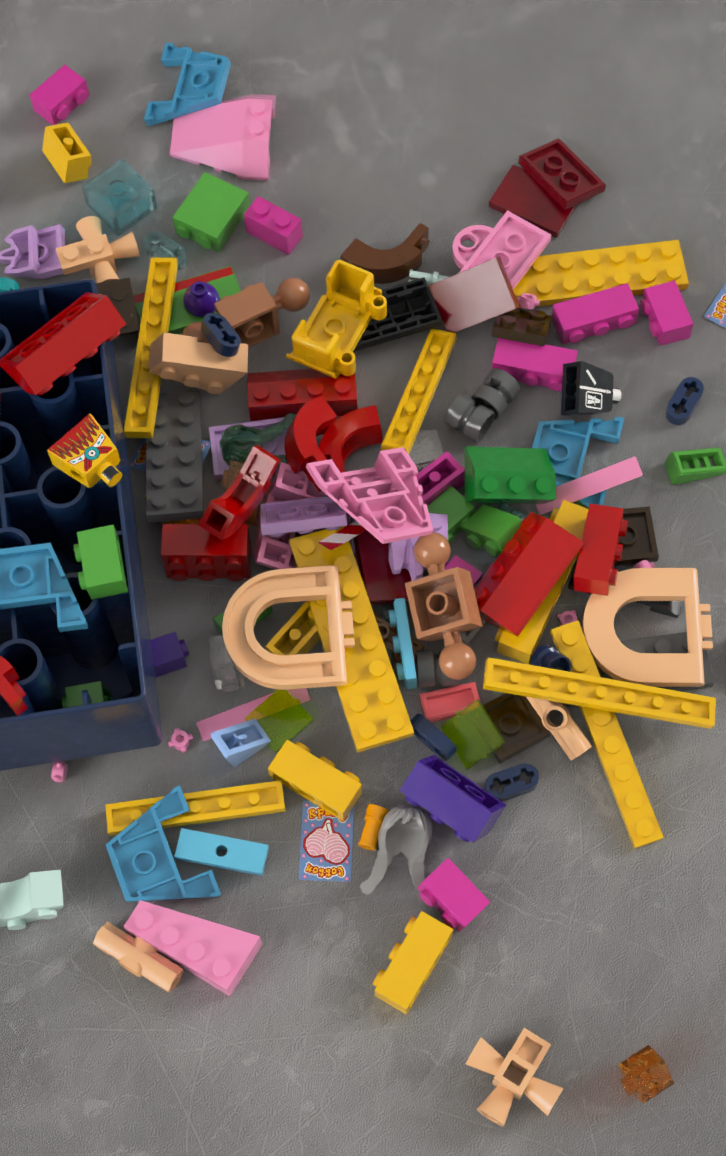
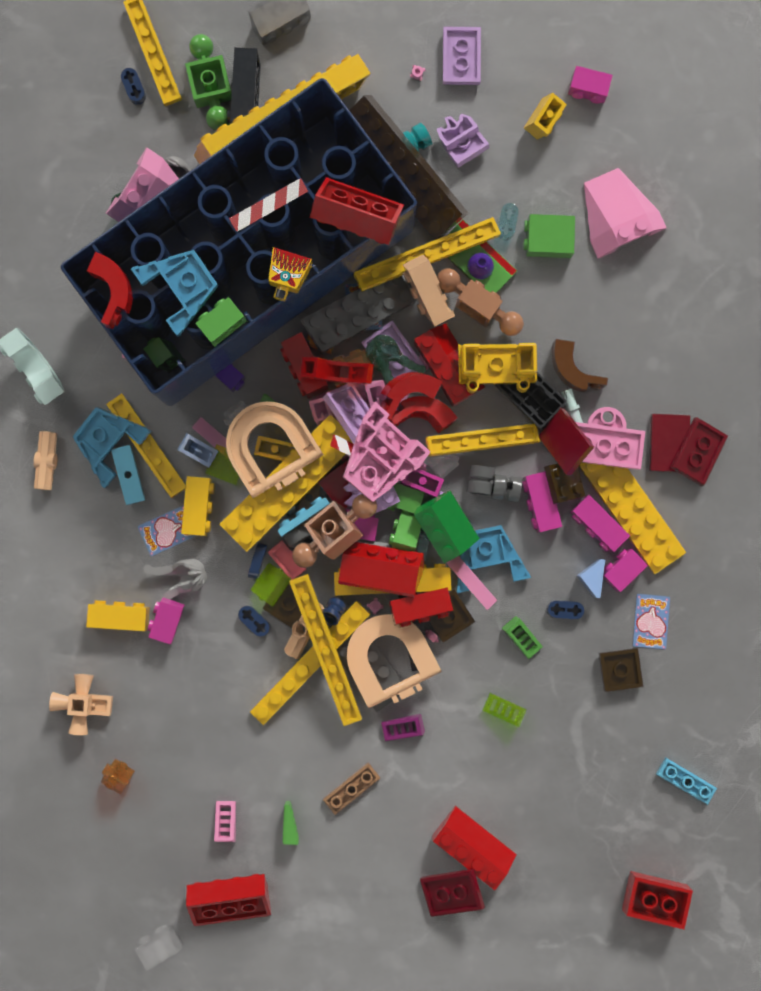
camera: 55 degrees right, 20 degrees up
(96, 251) = (479, 180): light nougat brick -> none
(120, 196) = (529, 170): clear light blue brick -> none
(180, 740) = (184, 414): bright pink piece -> none
(198, 86) = (647, 172): dark azure wing -> none
(198, 945) = (66, 488): bright pink wedge -> none
(220, 334) = (451, 298): dark blue beam -> none
(273, 225) = (560, 281): dark pink brick -> none
(374, 819) = (191, 552): light orange pin -> none
(452, 799) = (220, 593): dark purple brick -> none
(528, 301) = (585, 476): bright pink piece -> none
(587, 389) = (534, 546): black torso -> none
(660, 350) = (593, 577): none -> light blue slope

